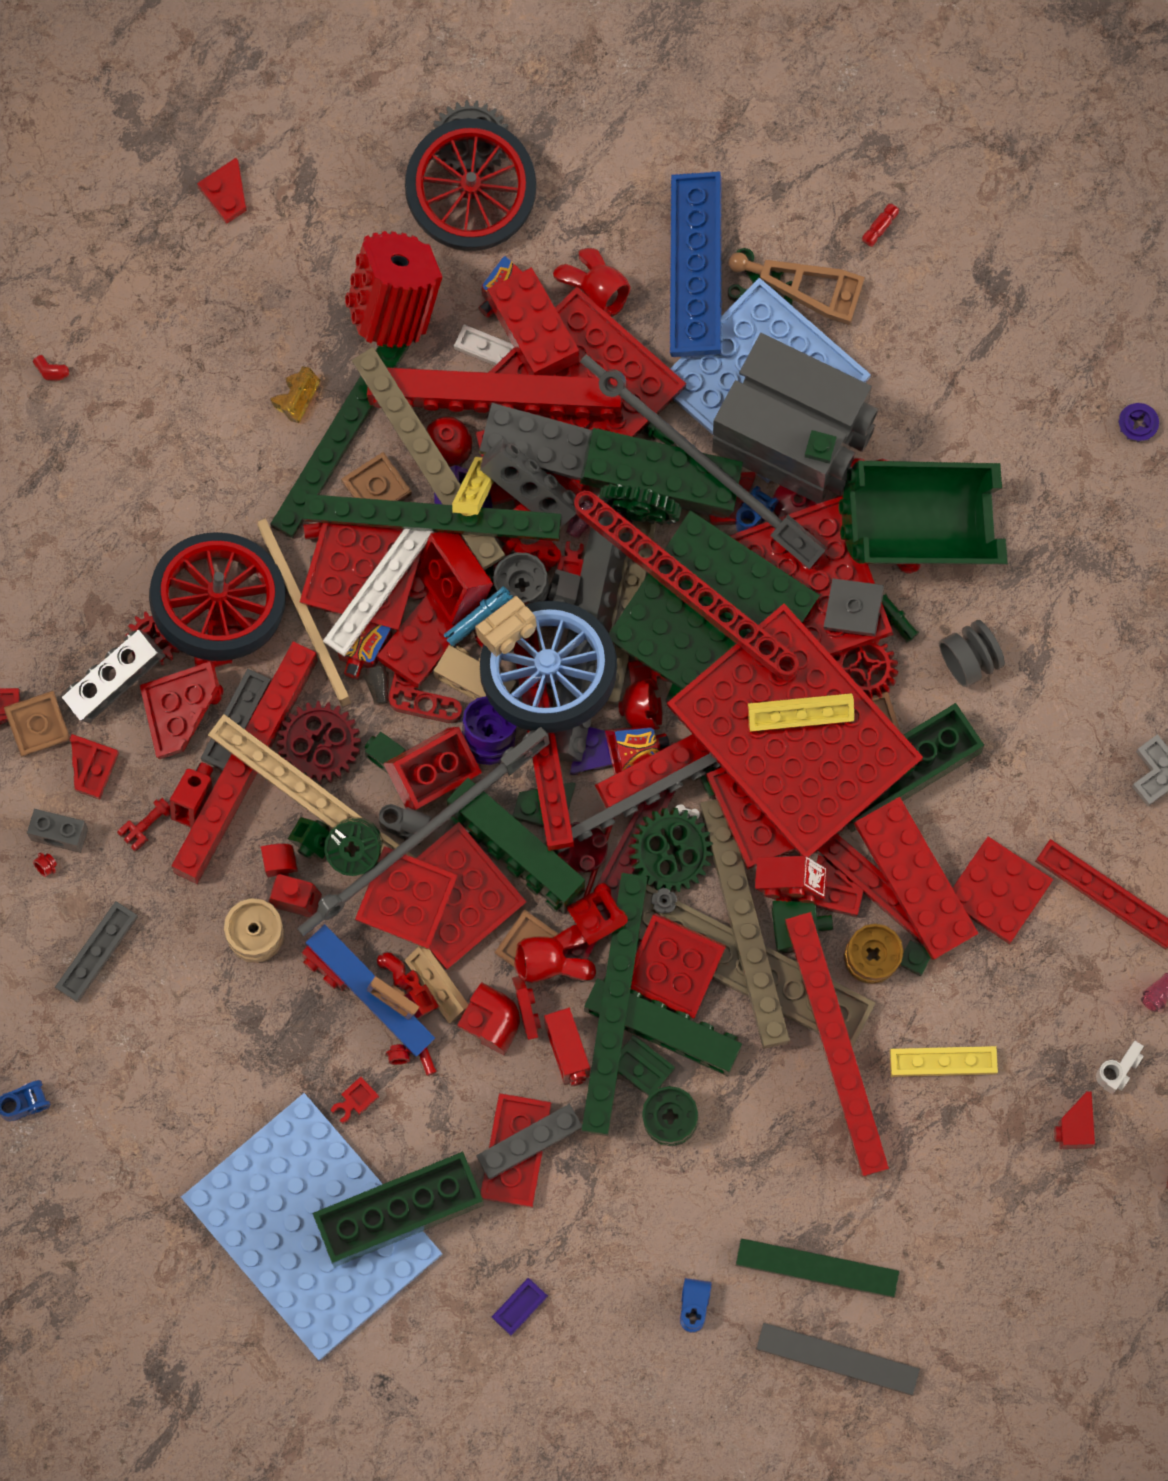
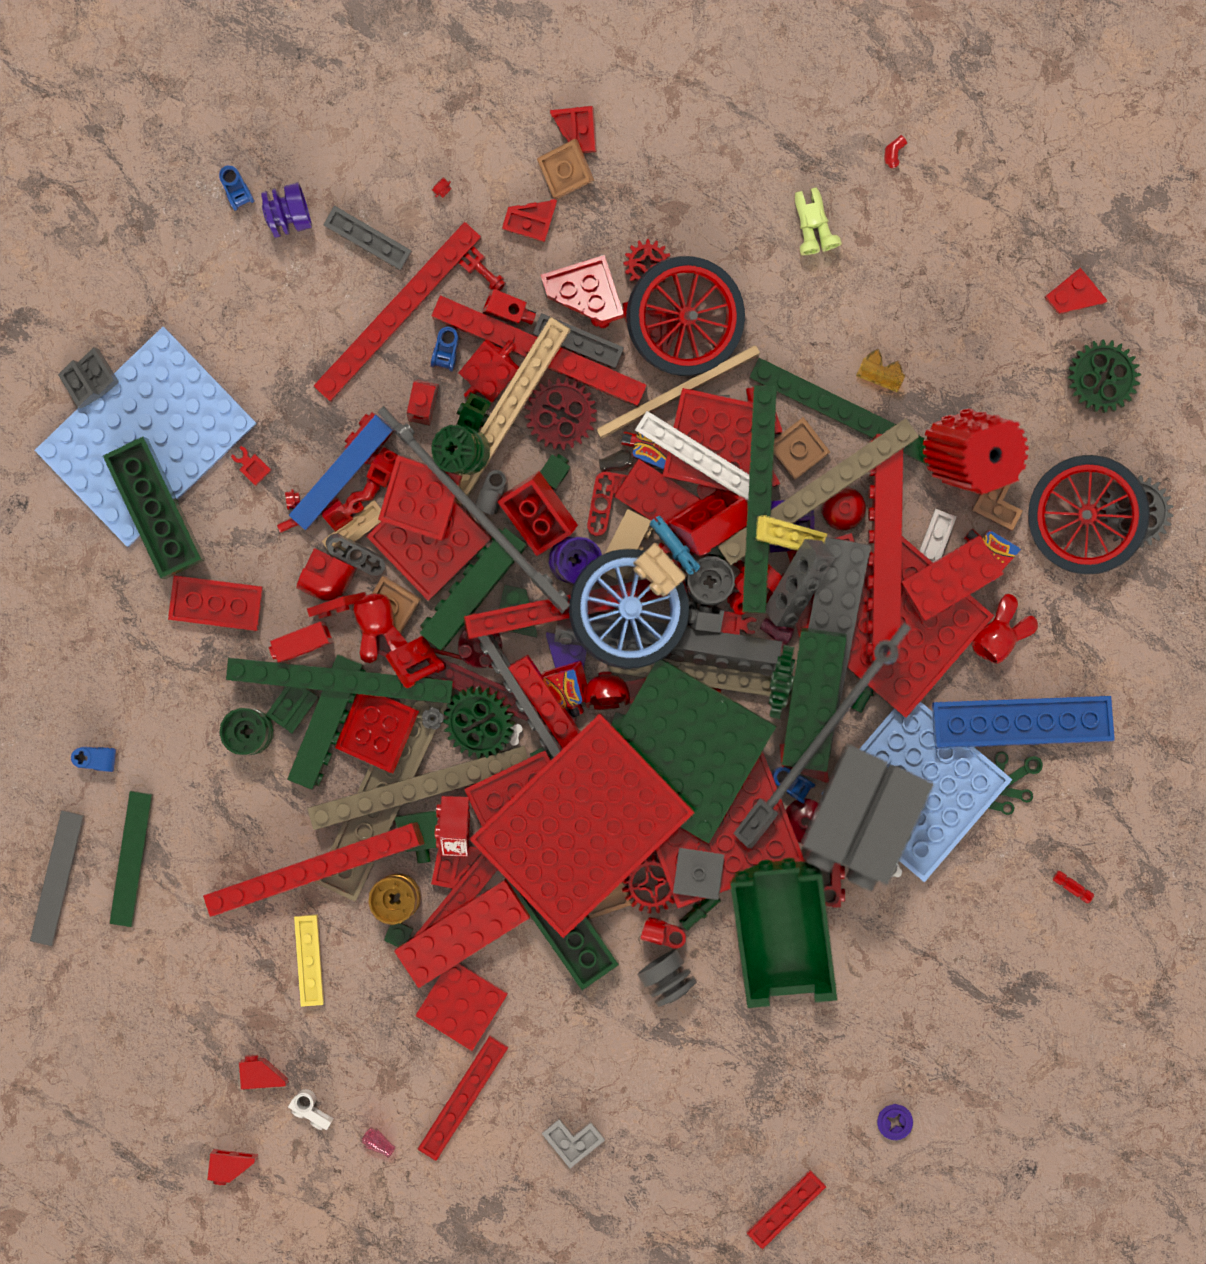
camera: 90 degrees right, 15 degrees up
(55, 1038) = (286, 210): none -> dark purple wheel
(57, 830) = (470, 195): dark grey brick -> none
(116, 457) = (813, 217): none -> yellowish green piece
(146, 656) = (628, 257): brick -> none
(186, 924) = (397, 311): none -> red plate
(235, 869) = (445, 351): none -> blue piece
(236, 1288) = (88, 378): none -> dark grey slope
(259, 945) = (393, 357): tan wheel -> none
(262, 815) = (489, 370): none -> red plate
(279, 859) = (449, 386): red brick -> none
(331, 148) = (1121, 385): none -> dark green gear
(367, 942) = (382, 466): none -> red brick
(392, 997) = (327, 492): medium nougat plate -> none
(458, 984) = (359, 563): none -> dark grey beam
(459, 281) = (995, 509): none -> medium nougat plate
(519, 1306) = (87, 613): dark purple tile -> none
(529, 1141) = (220, 614): dark grey plate -> none
(681, 573) = (693, 732): red beam -> none
(801, 712) = (594, 831): light yellow plate -> none
(820, 446) = (826, 841): dark green plate -> none
(845, 292) = (1001, 856): medium nougat plate -> none
(921, 659) = (659, 933): none -> red piece

